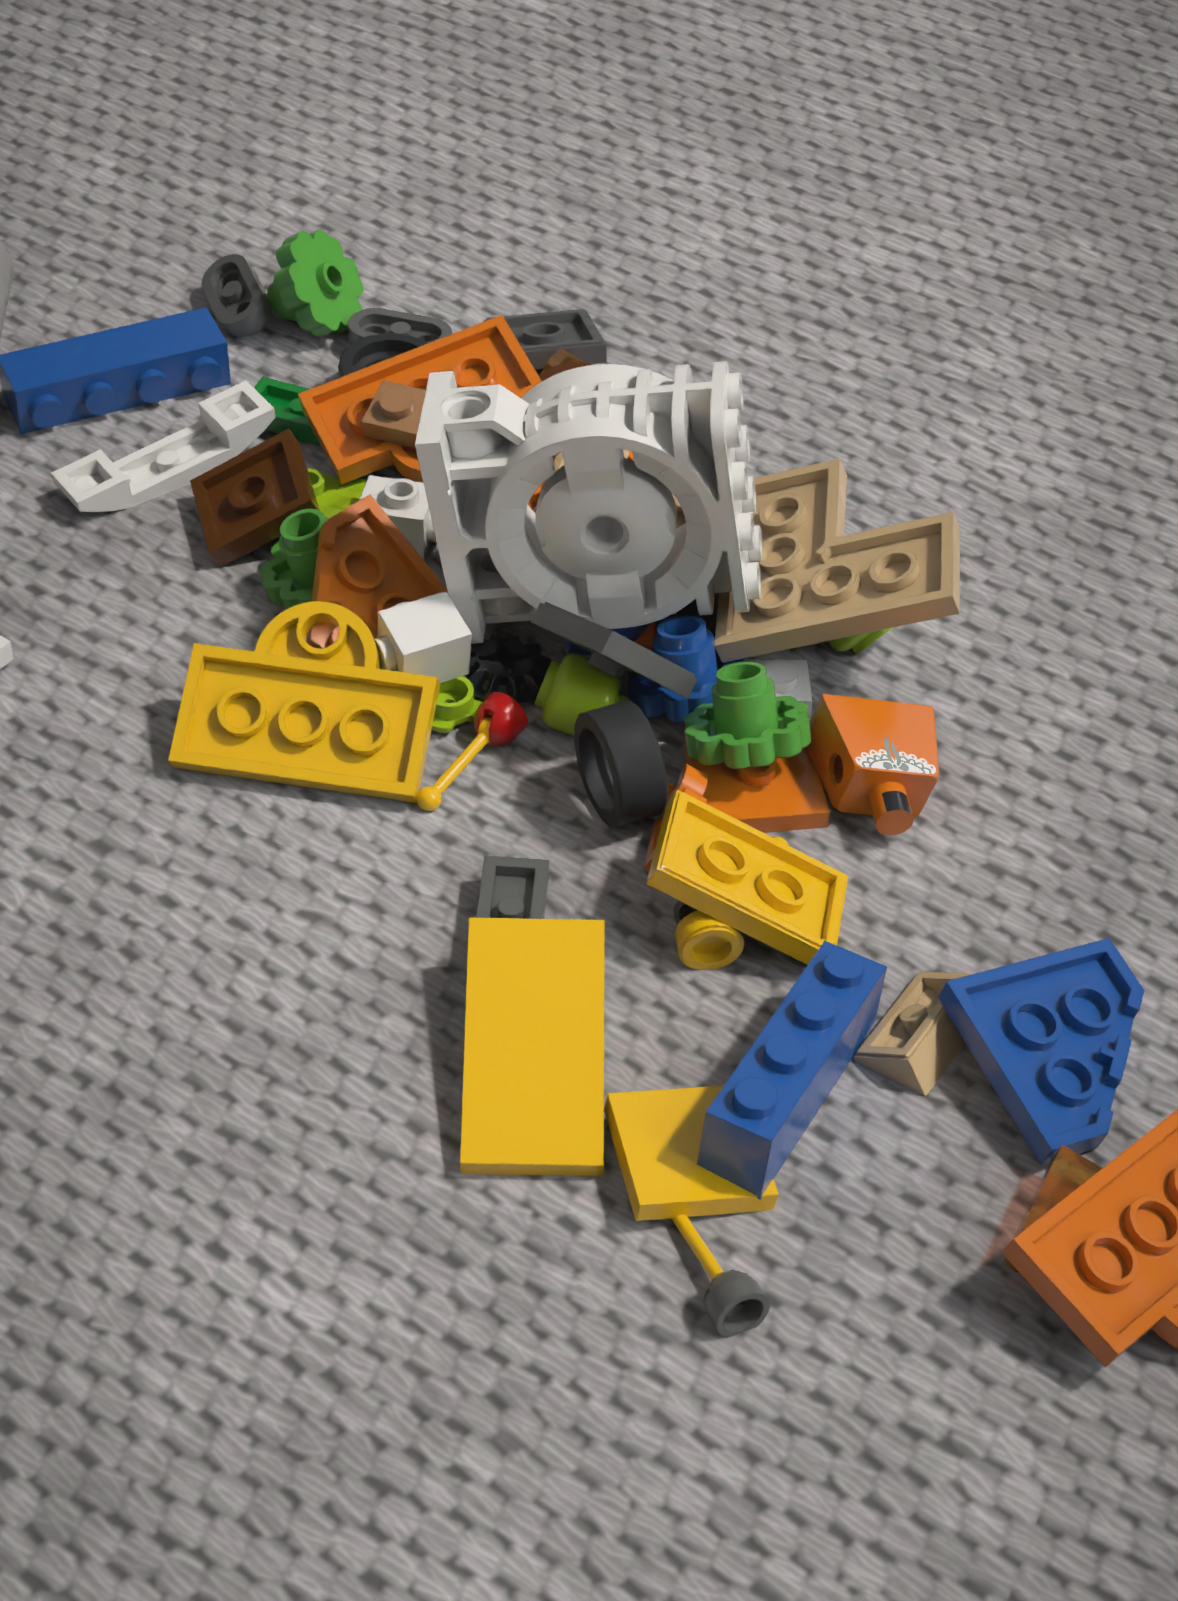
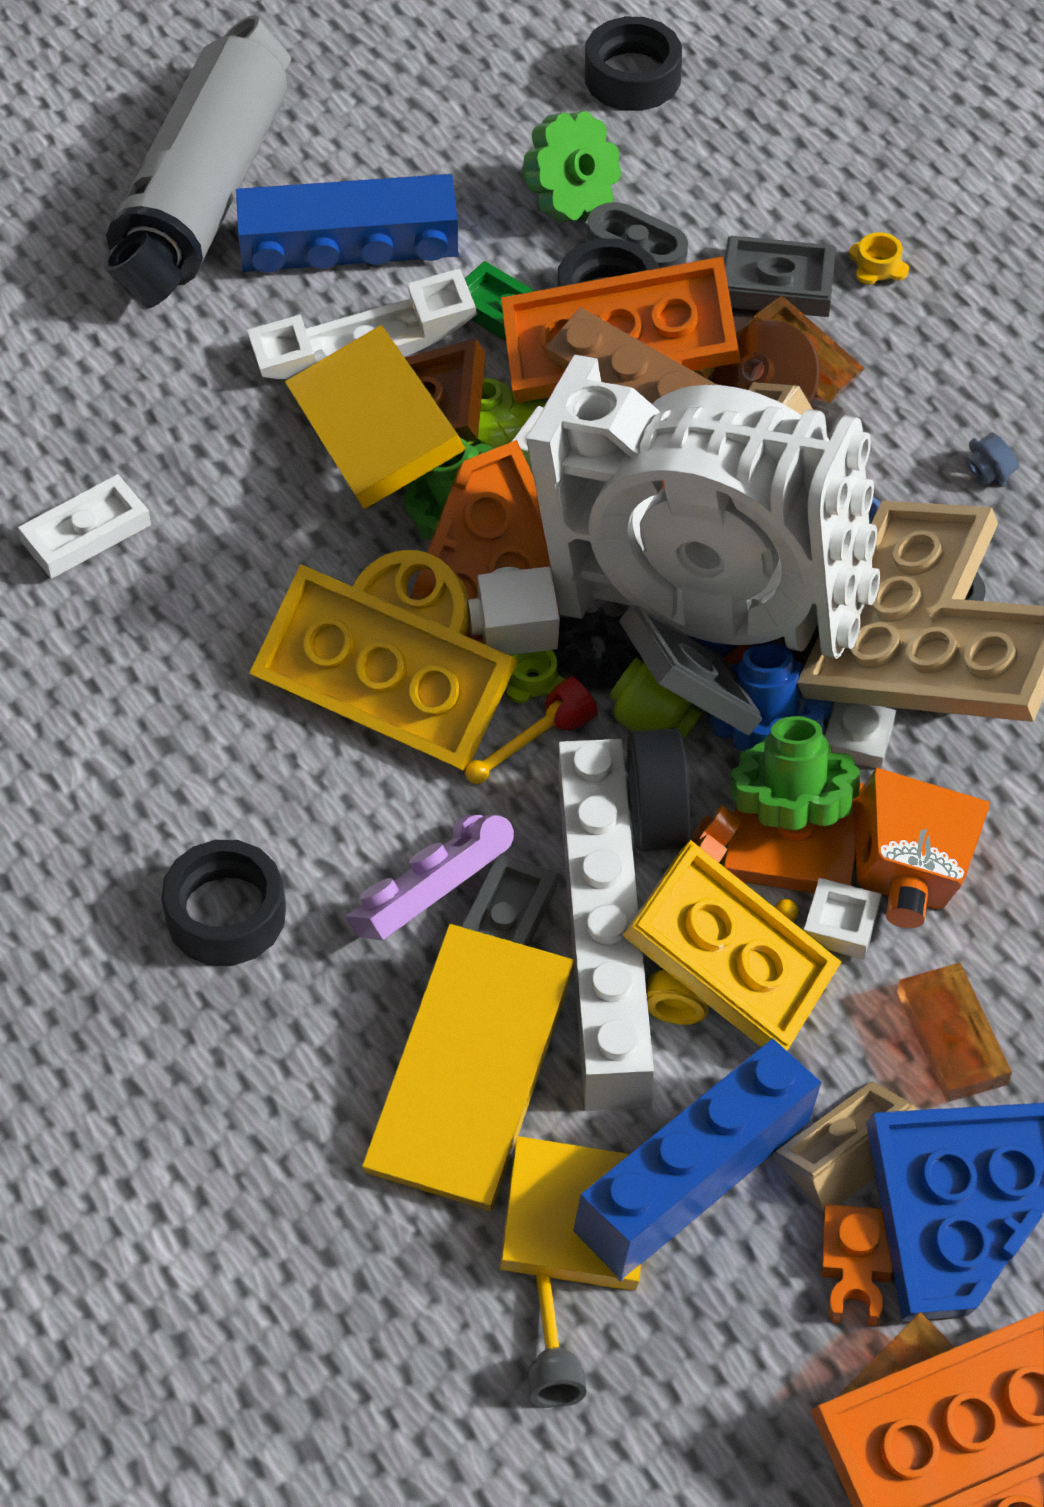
camera: 20 degrees right, 10 degrees up
(213, 513) = (374, 416): none -> yellow tile
(232, 1000) = (236, 942): none -> black tyre
(236, 296) = (493, 159): dark grey plate -> none
(337, 179) = (633, 90): none -> black tyre
(425, 891) = (433, 874): none -> lavender plate
(605, 879) = (601, 906): none -> white brick
(629, 312) = (878, 258): none -> yellow plate
(802, 445) = (991, 459): none -> sand blue plate
(835, 837) = (842, 917): none -> white plate
(973, 1118) = (857, 1253): none -> orange plate
(979, 909) = (954, 1032): none -> clear orange plate

